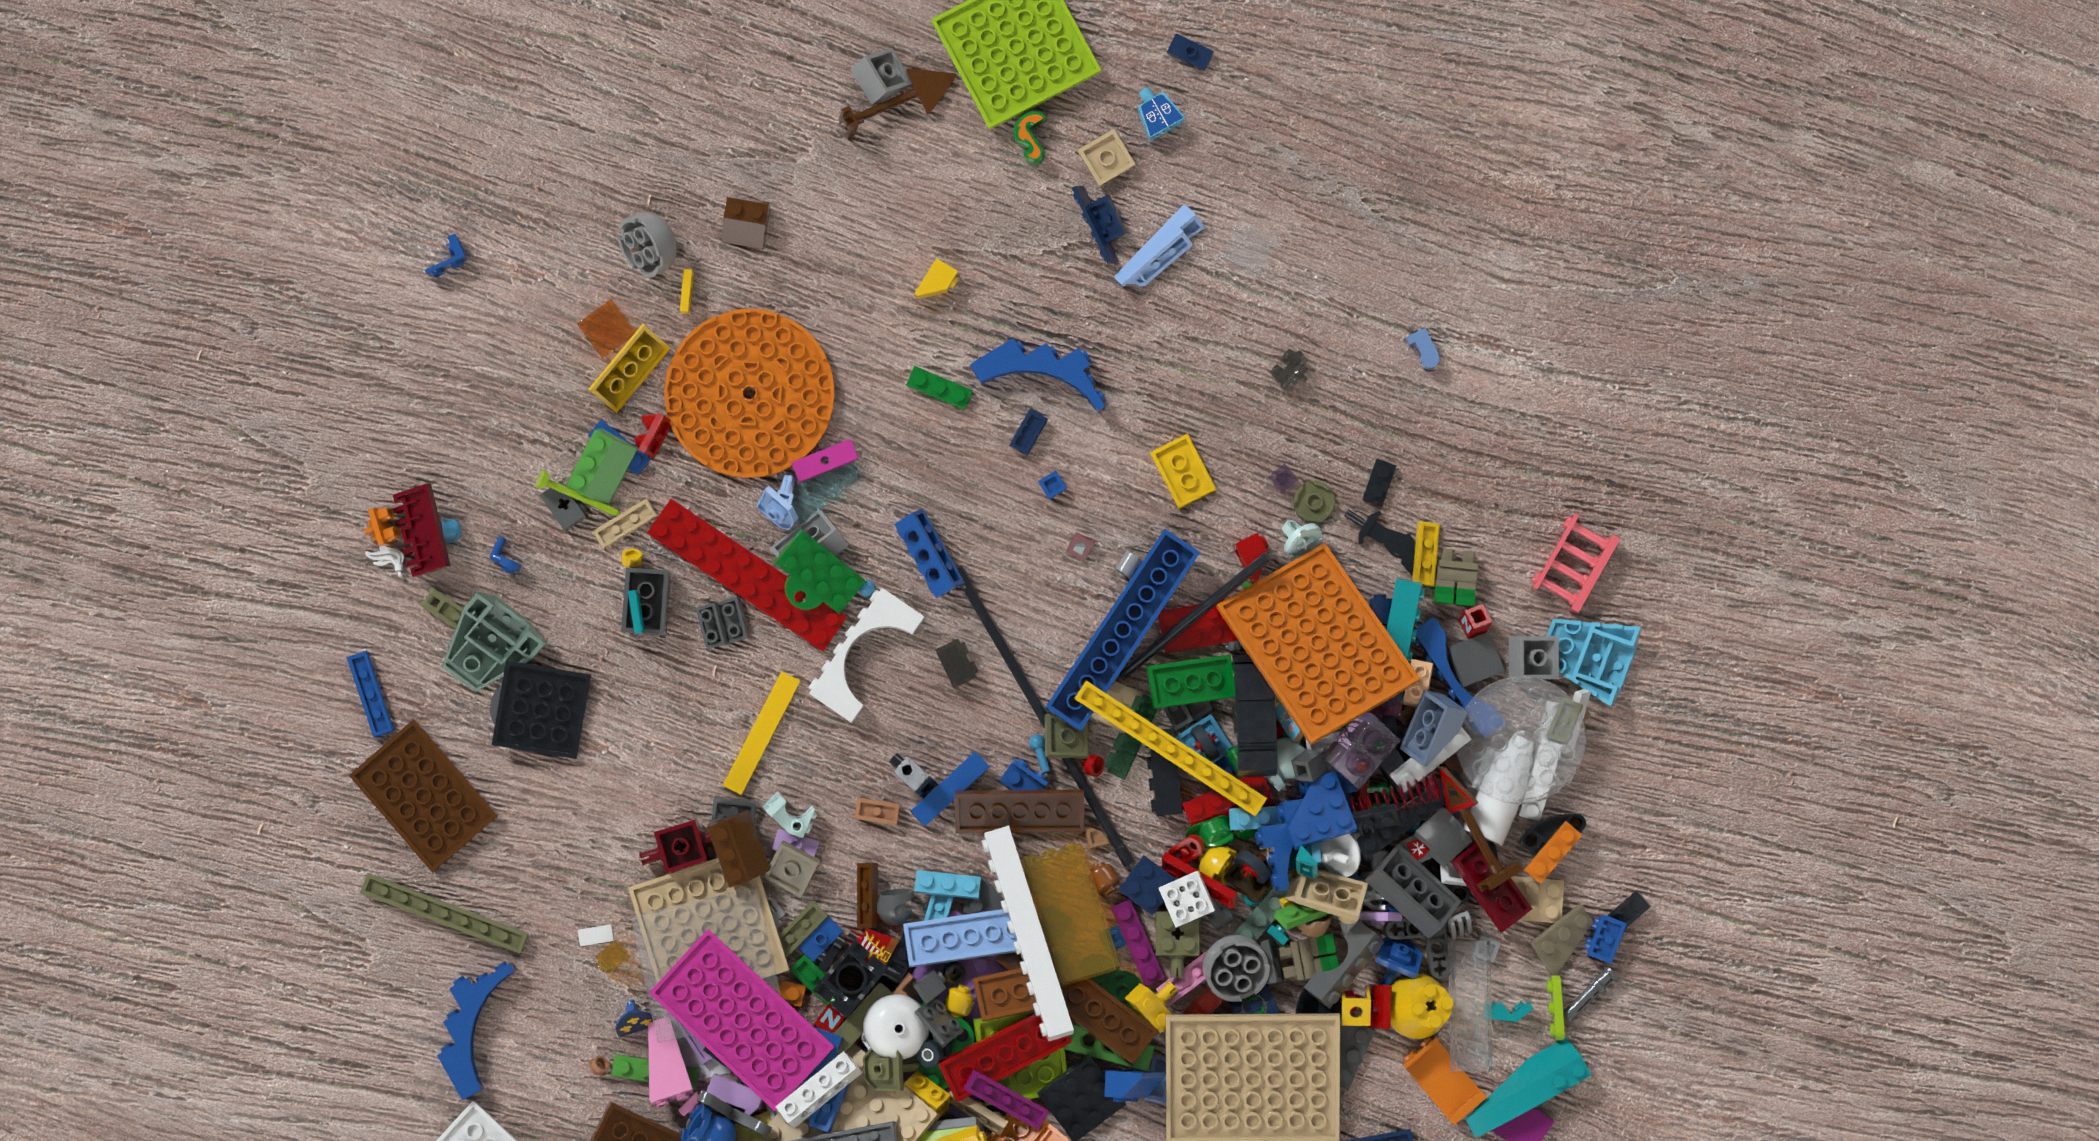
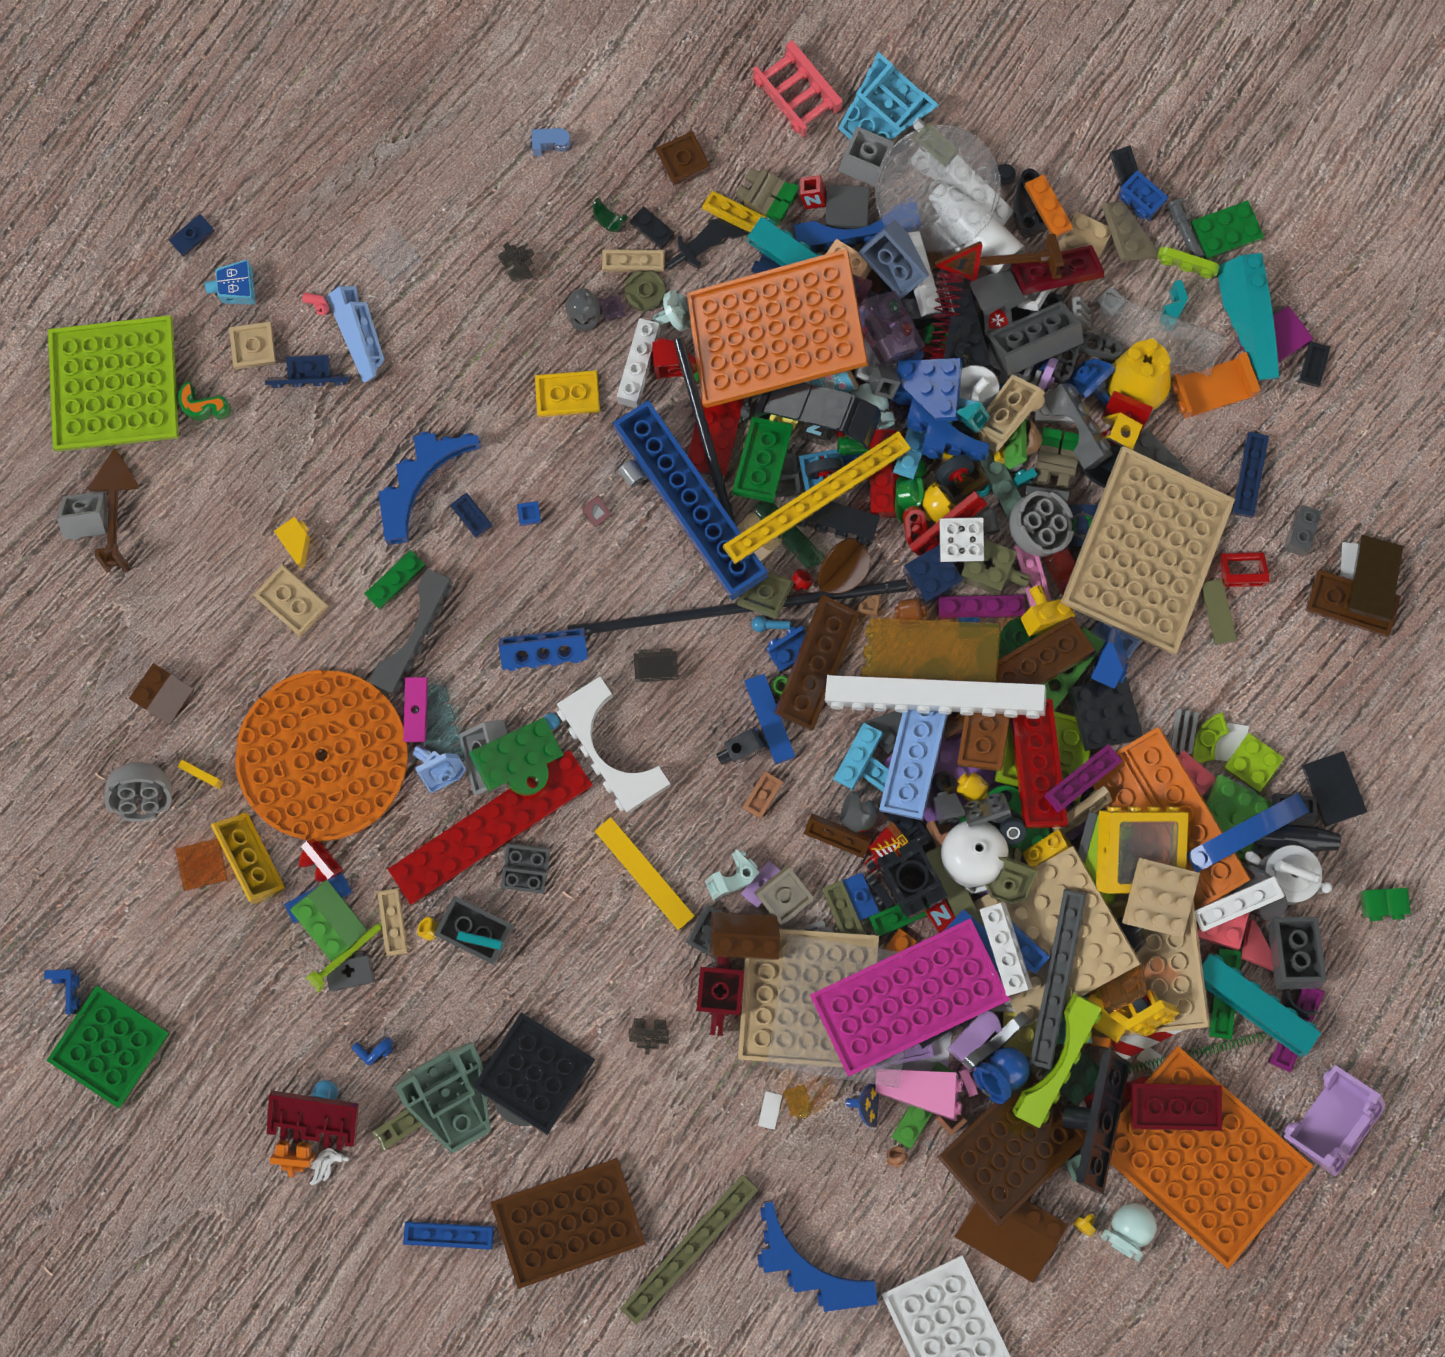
camera: 65 degrees left, 5 degrees down
(412, 319) = (108, 1046): none -> green plate
(615, 788) = (648, 1038): none -> clear smoke hips
(645, 1105) = (951, 1126): none -> nougat panel
(880, 301) = (291, 600): none -> tan tile
(941, 427) = (390, 672): none -> dark grey arch
(983, 780) = (774, 686): none -> bright green plate
(1120, 800) = (844, 567): none -> reddish brown piece
(1174, 200) = (318, 301): none -> coral arm
(1238, 526) = (638, 363): none -> white brick
(1270, 451) = (581, 306): none -> dark grey piece
(1339, 478) = (633, 260): none -> tan tile
(1370, 436) = (607, 218): none -> dark green helmet
(1459, 482) = (682, 158): none -> reddish brown plate
(1573, 797) = (1007, 173): none -> black plate
(1606, 1033) = (1227, 230): none -> green plate

